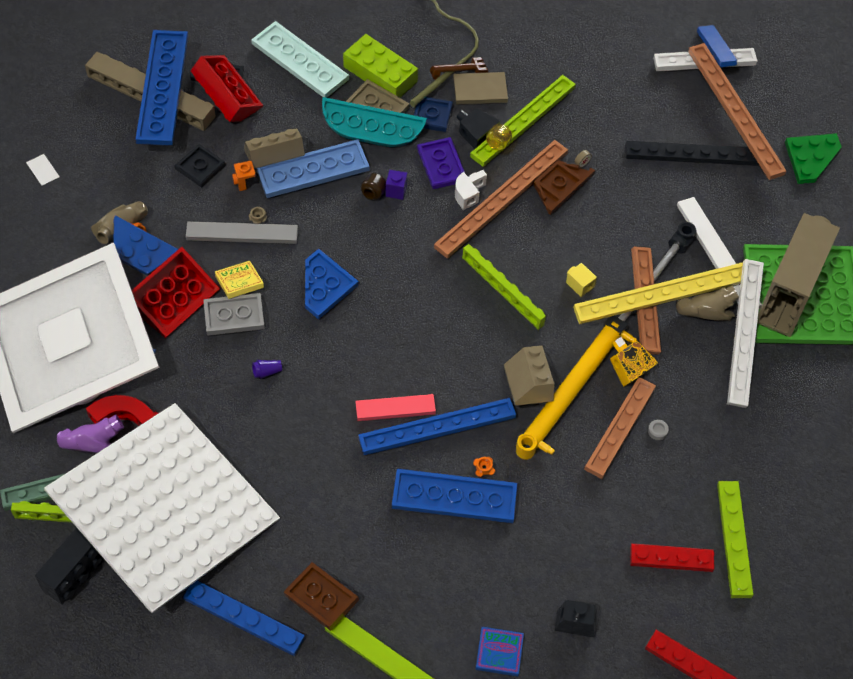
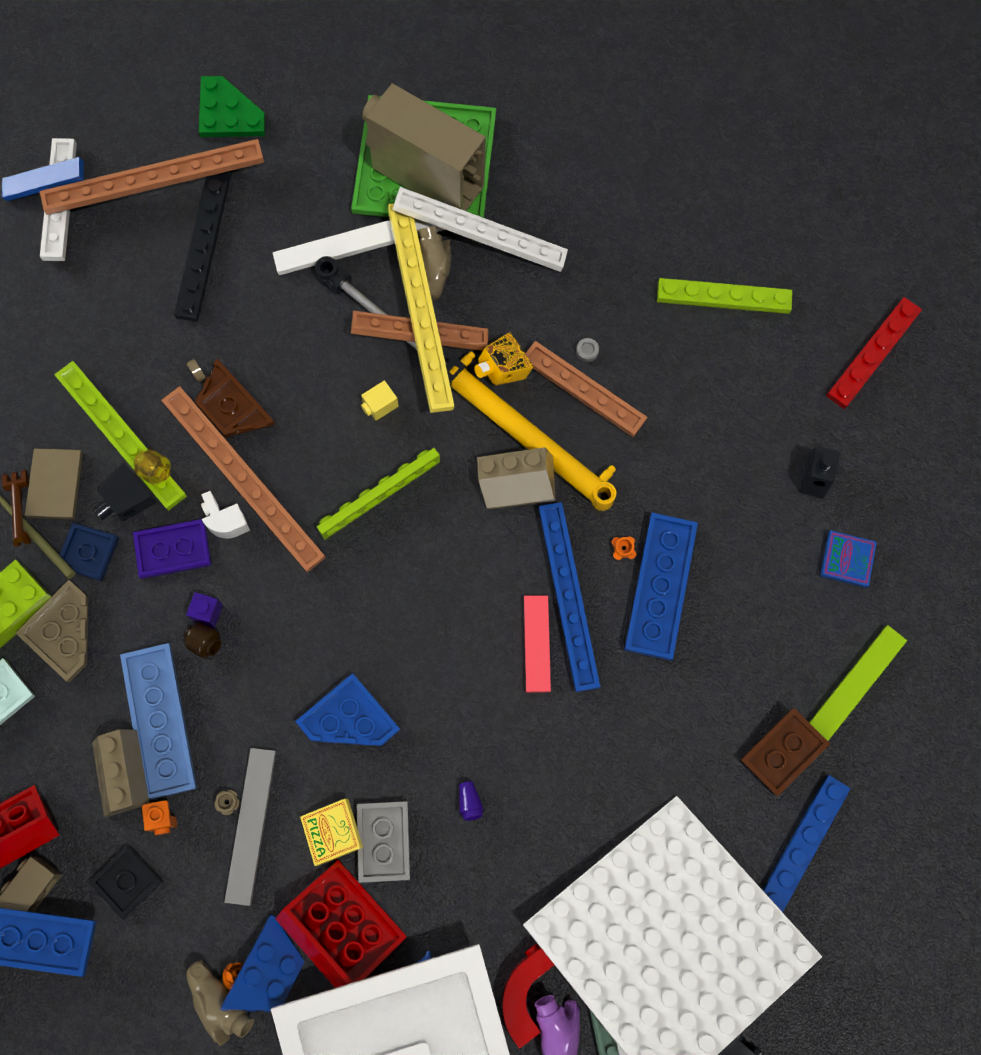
camera: 85 degrees left, 15 degrees up
(371, 123) = (97, 635): teal plate -> none
(672, 557) = (744, 363): red plate -> none

